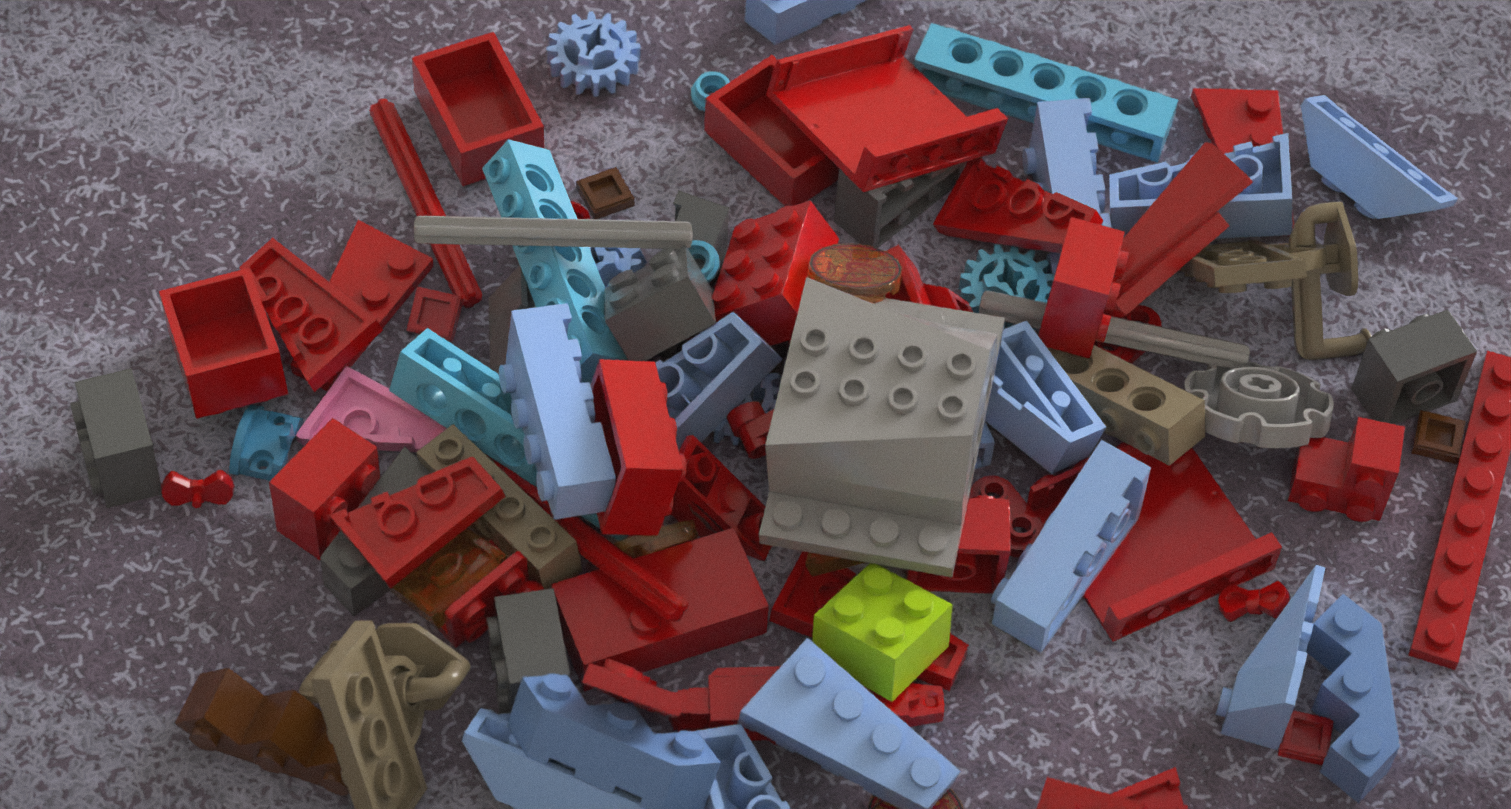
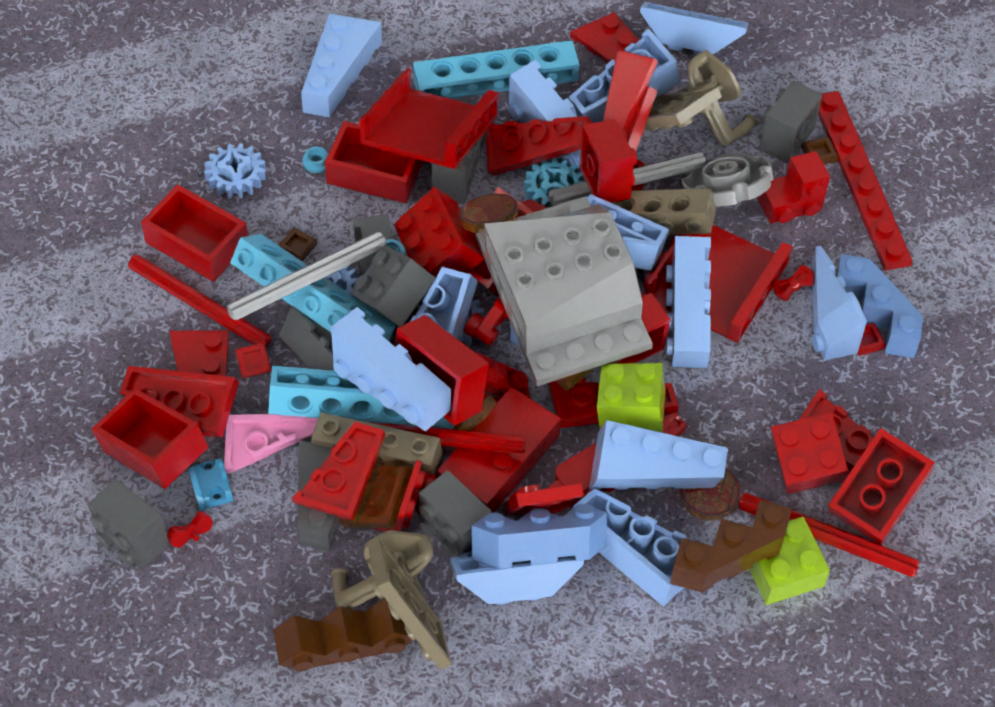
camera: 30 degrees left, 0 degrees up
(321, 479) = (272, 487): red brick -> none

